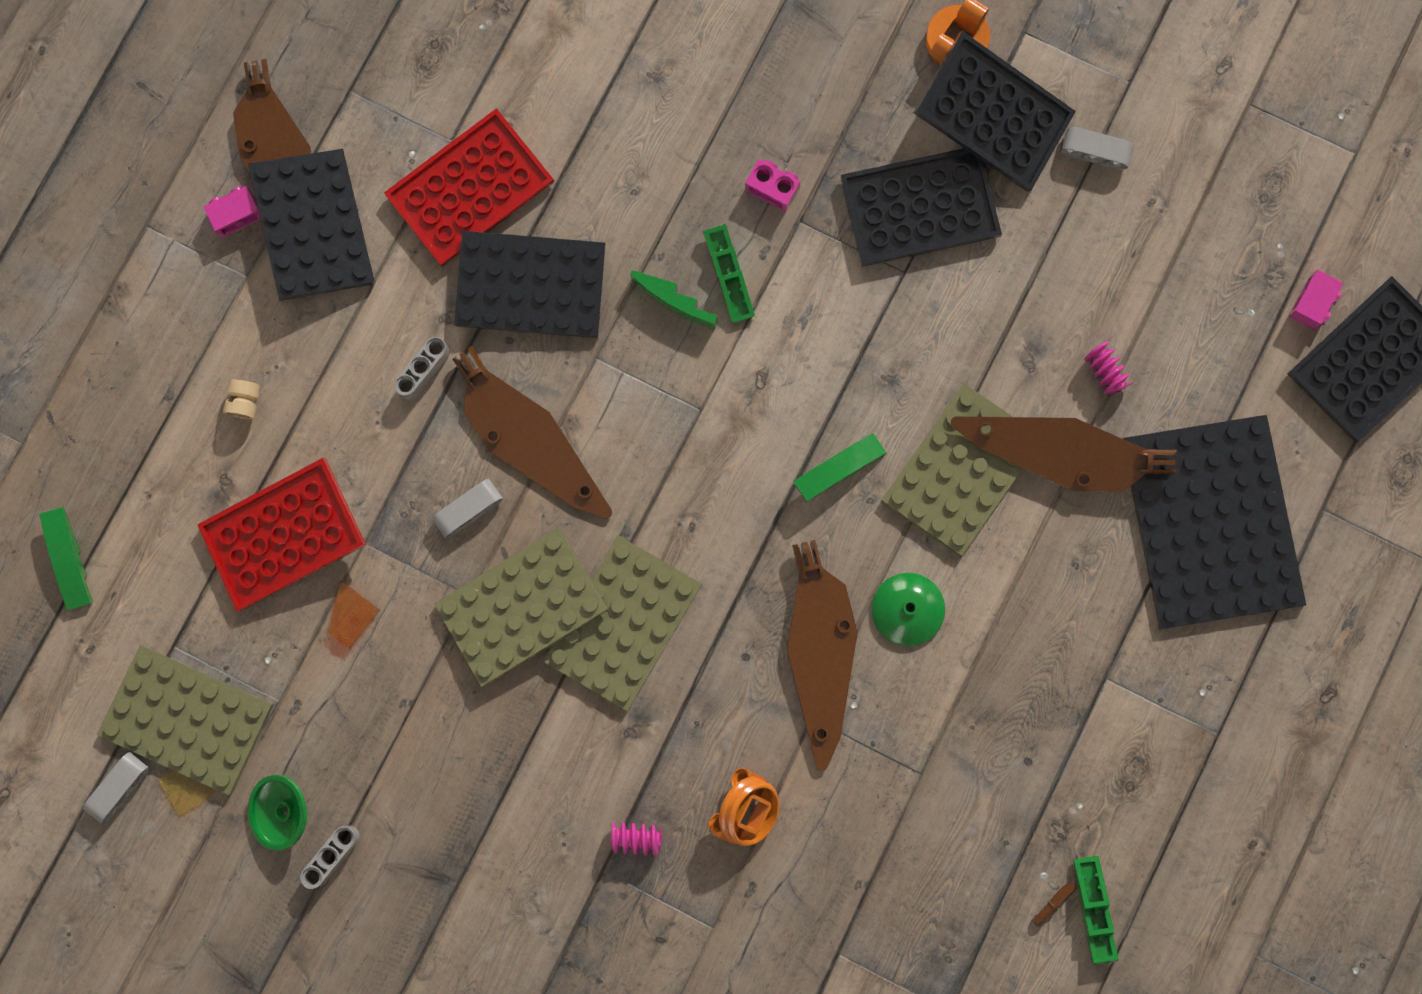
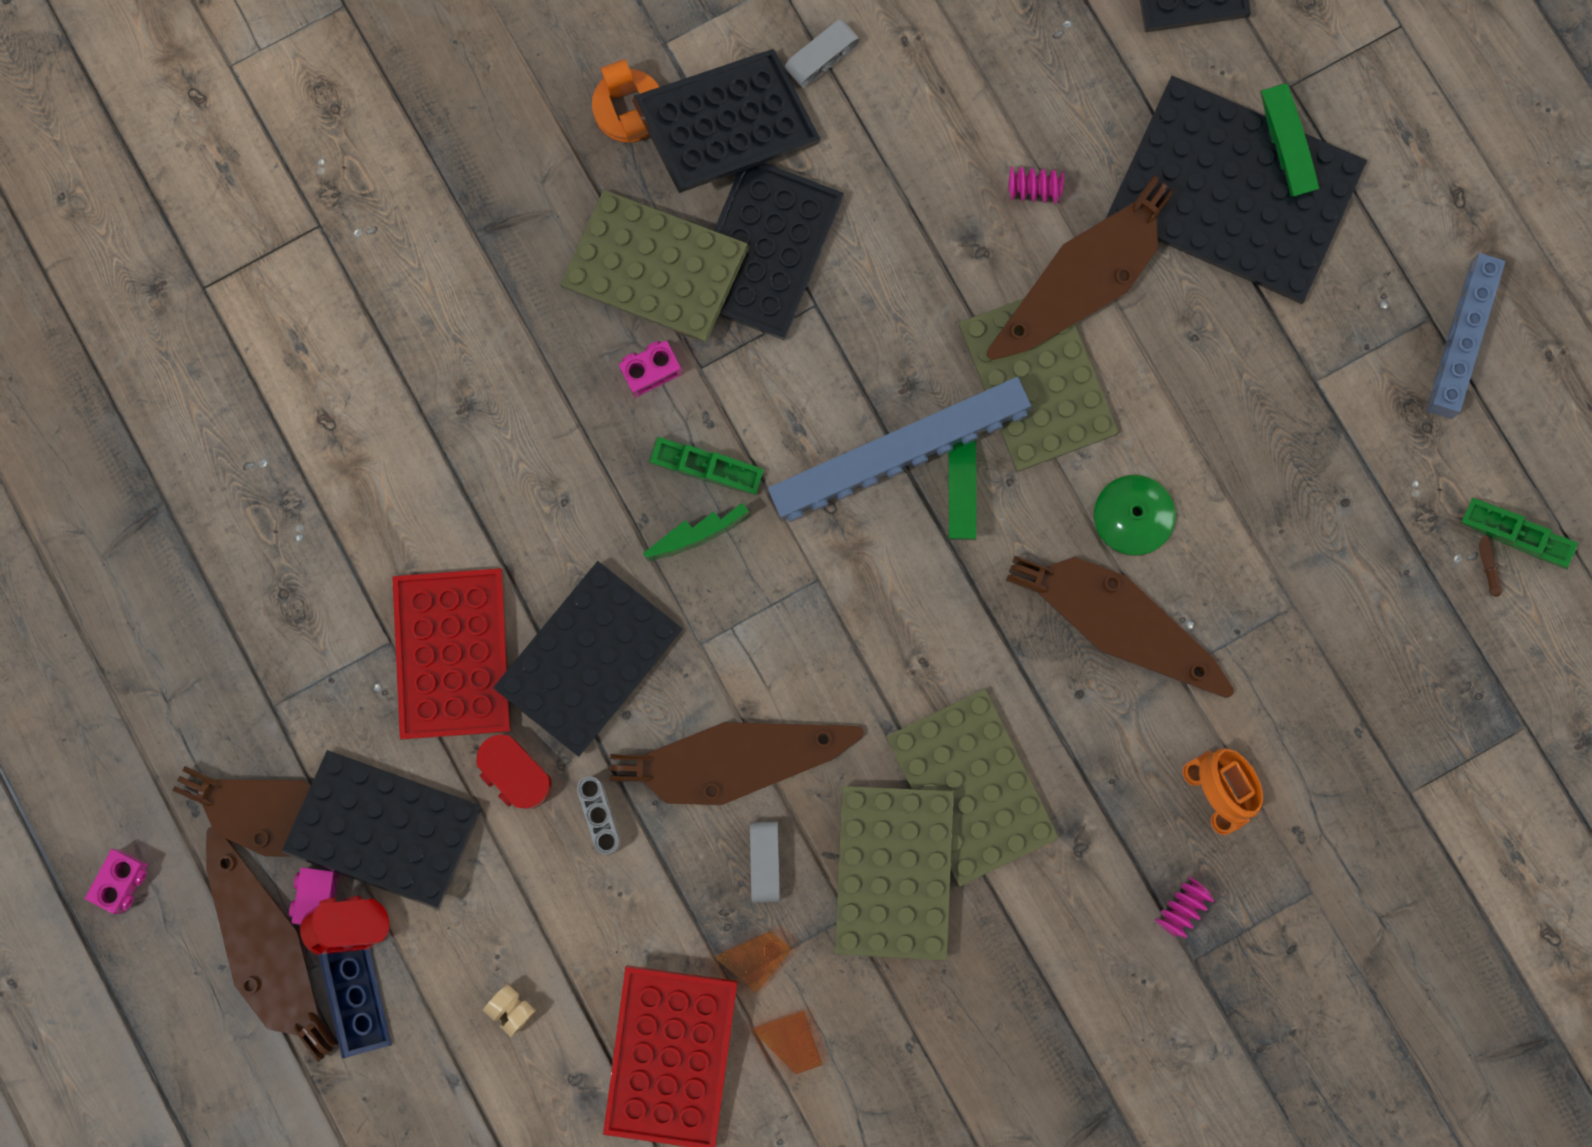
camera: 55 degrees left, 0 degrees up
(156, 63) = (111, 877): none -> dark pink brick
(173, 203) = (264, 950): none -> reddish brown wing
(180, 285) = (355, 1002): none -> dark blue slope
(224, 242) = (344, 925): none -> red brick
(392, 549) = (755, 959): none -> clear orange wing
(413, 287) = (513, 772): none -> red brick
(836, 402) = (899, 449): none -> sand blue brick
(851, 136) = (654, 266): none -> olive plate
(1221, 768) = (1465, 336): none -> sand blue brick
(1278, 533) = (1289, 139): none -> green slope

